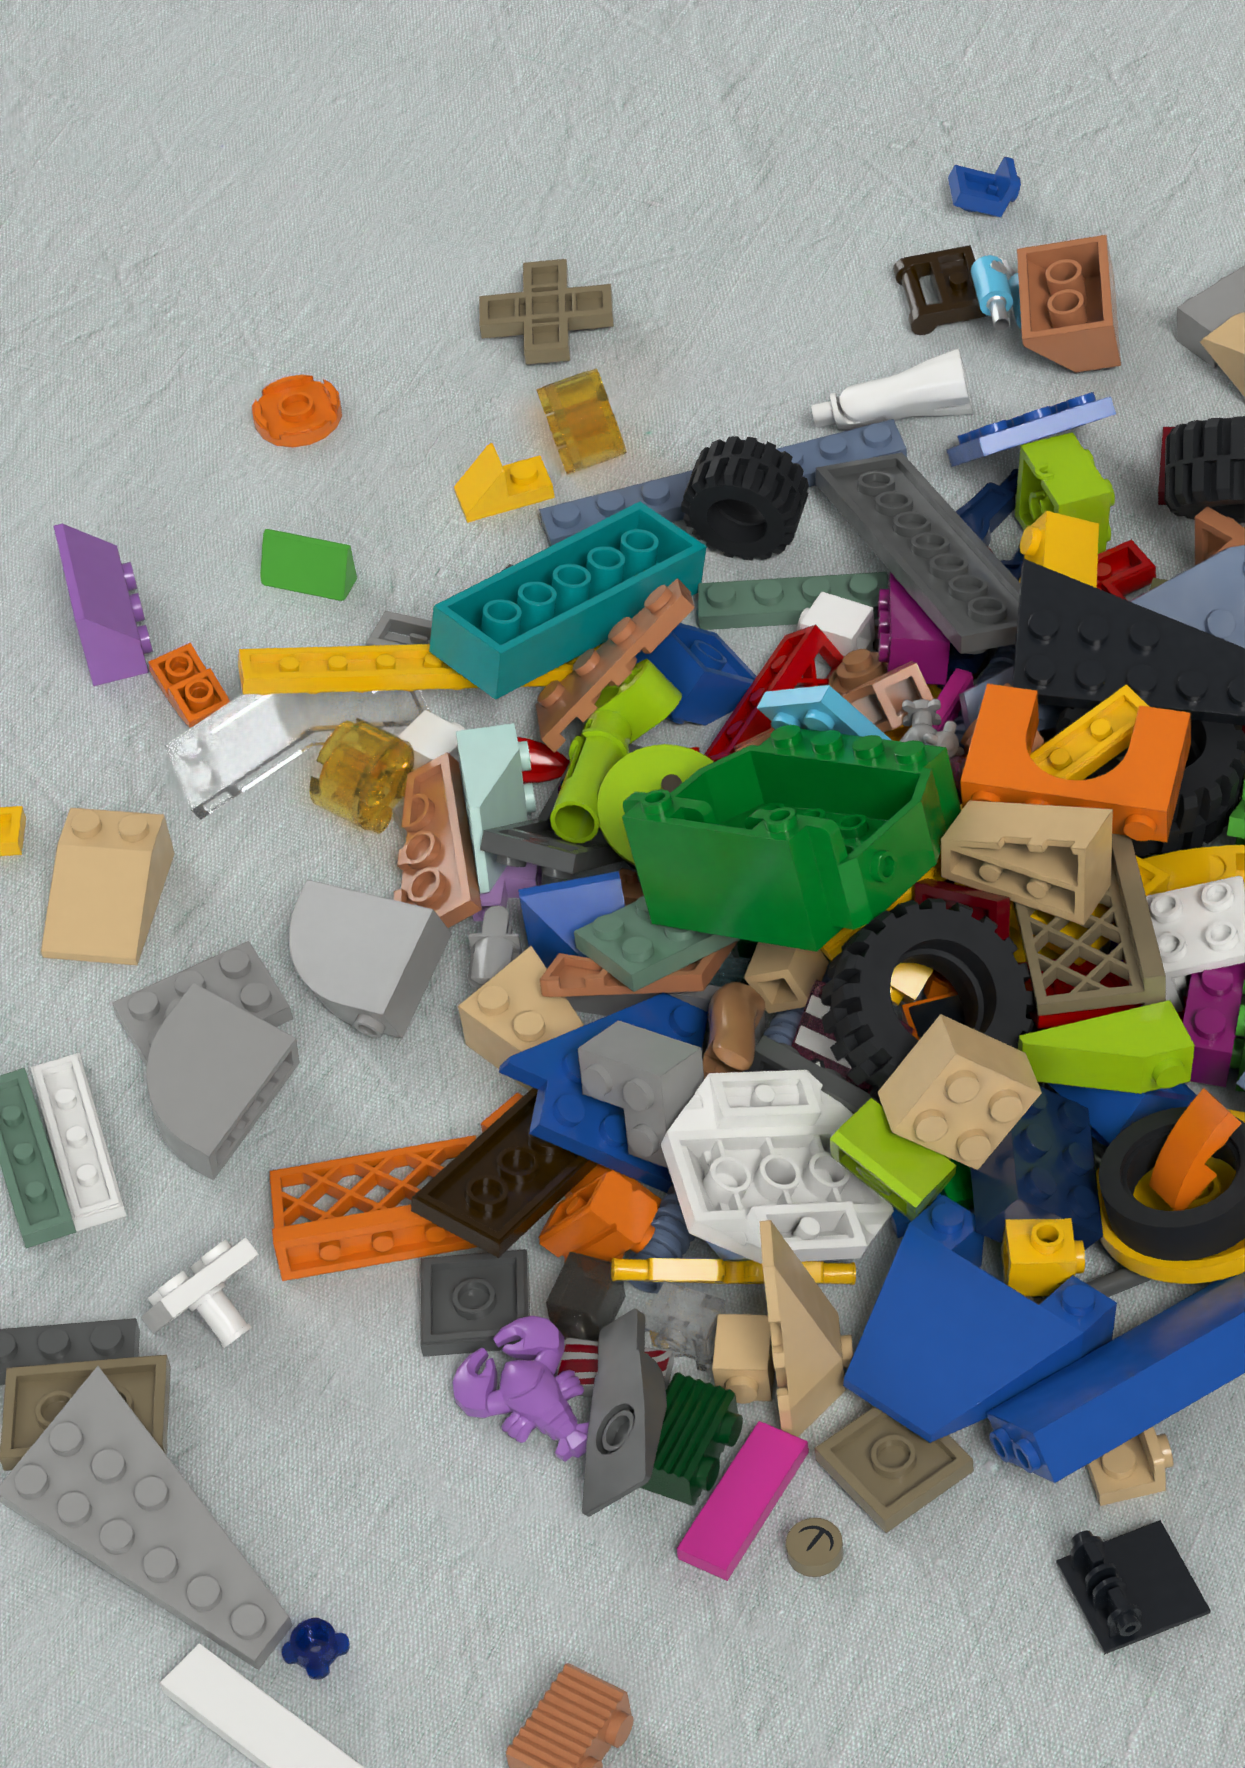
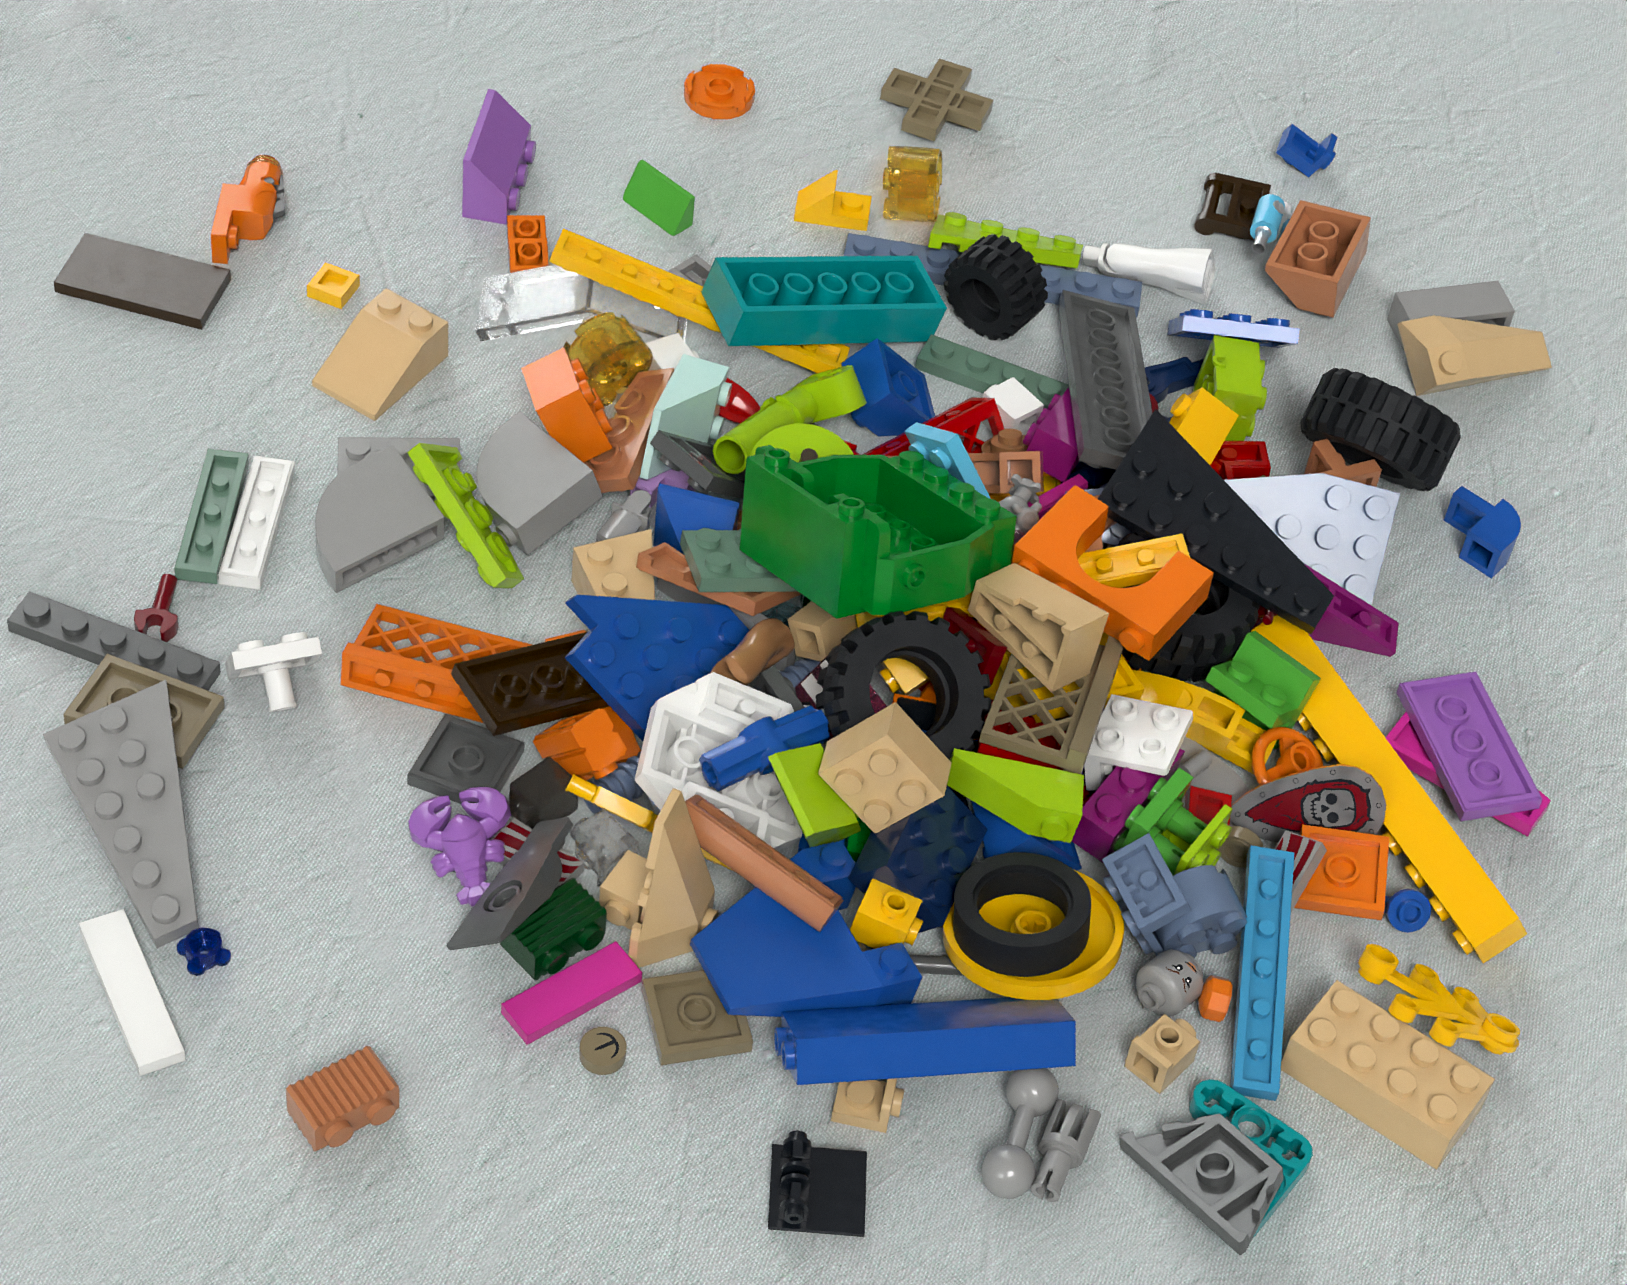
camera: 10 degrees right, 0 degrees up
(31, 1295) = (159, 613): none -> dark red bar
(319, 1023) = (453, 492): none -> lime wing
(358, 846) = (568, 404): none -> orange brick
(610, 663) = (827, 358): nougat wing -> none
(646, 1077) = (665, 652): light grey brick -> none
(681, 449) = (963, 233): none -> lime wing
(807, 1130) = (765, 737): none -> blue piece
(888, 1261) = (762, 865): none -> nougat brick
(1181, 1165) = (1025, 902): orange slope -> none

